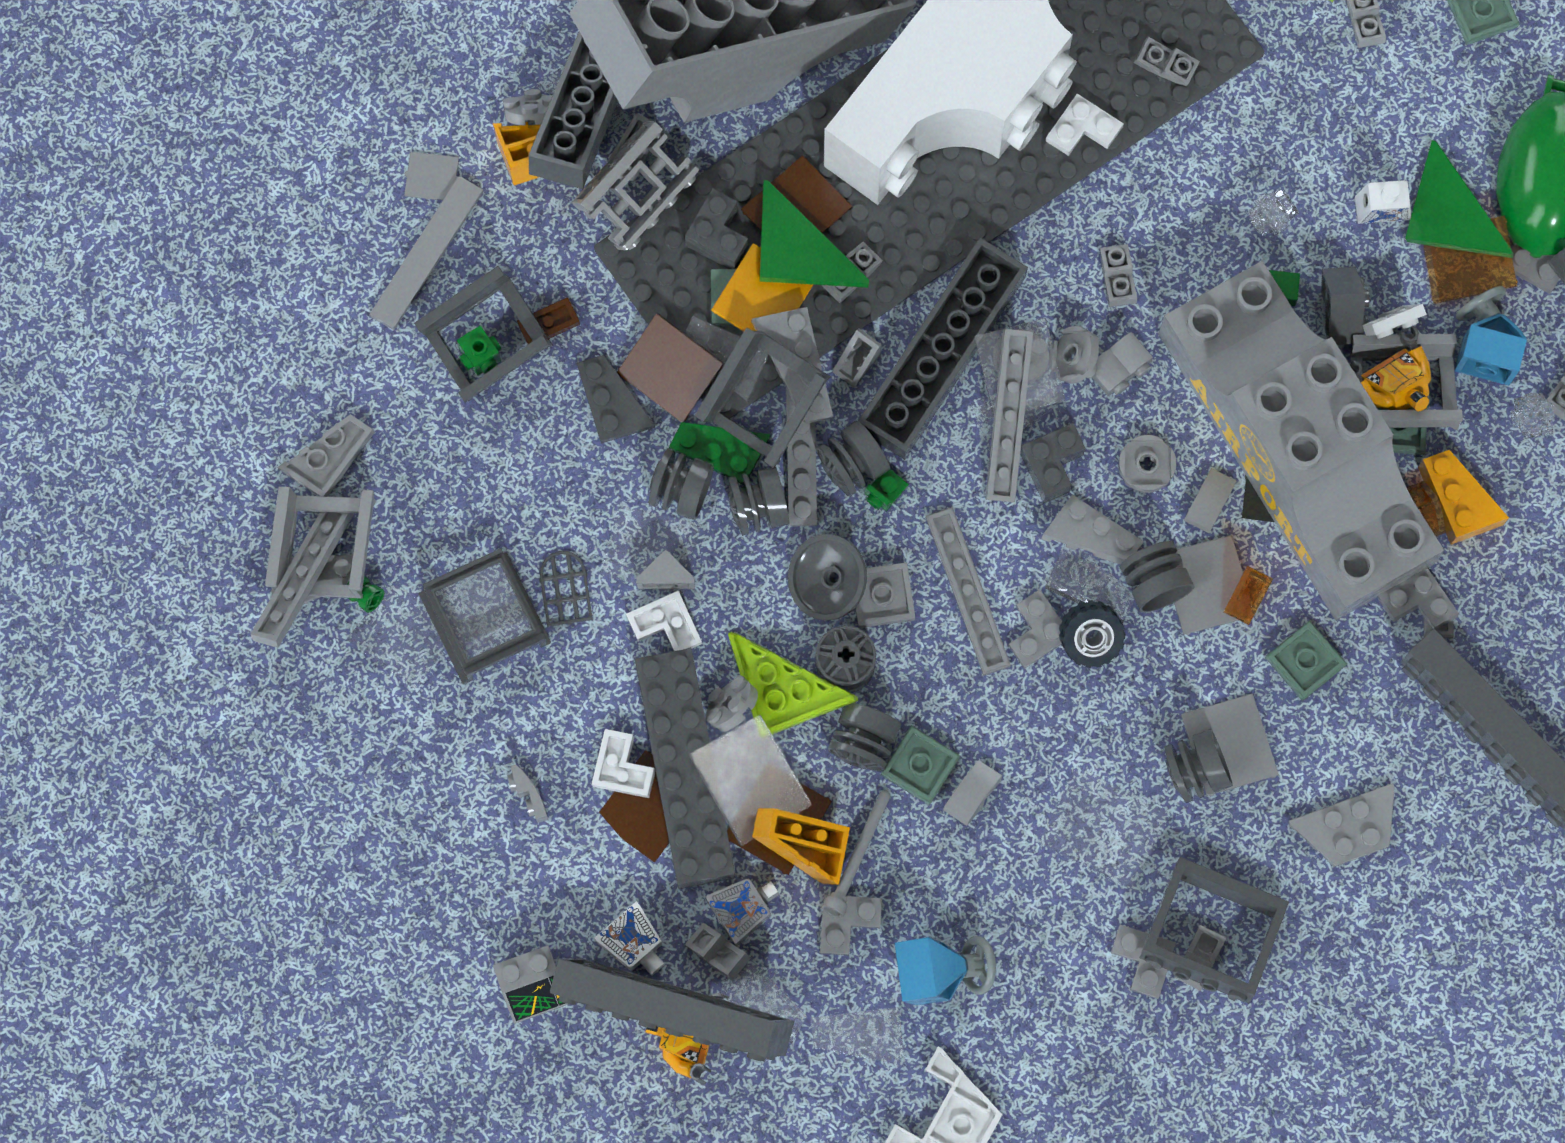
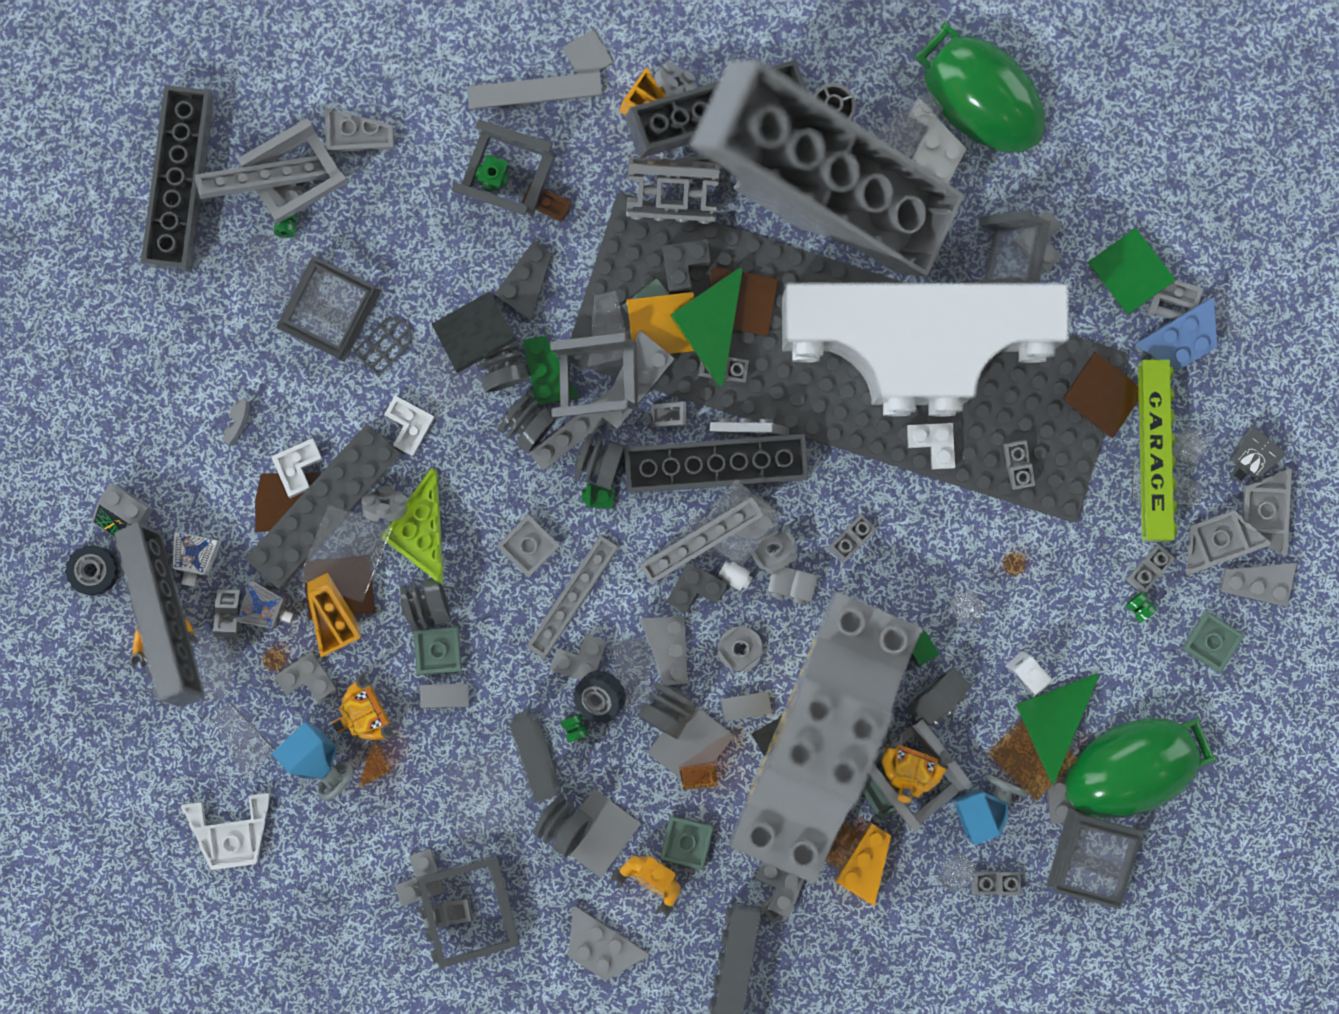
camera: 50 degrees right, 10 degrees up
(233, 665) = (173, 191): none -> dark grey brick
(579, 1070) = (78, 565): none -> black wheel
(625, 483) = (473, 332): none -> pearl dark grey piece
(665, 573) = (439, 401): light grey slope -> none
(670, 368) = (573, 301): piece -> none
(802, 940) = (274, 659): none -> clear orange tile
(813, 574) = (504, 496): dark grey dish -> none
(836, 903) = (308, 663): light grey piece -> none
(862, 661) = (480, 554): dark grey wheel -> none
(912, 312) = (744, 426): none -> light grey wing
(928, 886) = (363, 712): none -> torso
(993, 914) = (376, 765): none -> clear orange slope
(1069, 411) = (735, 575): none -> white brick
(1098, 683) = (572, 723): none -> green wheel
(1106, 733) = (535, 756): none -> dark grey window
(1261, 140) = (1013, 564): none -> clear orange tile
(1316, 717) = (653, 877): none -> light orange torso
(1397, 51) = (1141, 607): none -> green wheel
(1399, 317) = (953, 737): white plate -> none

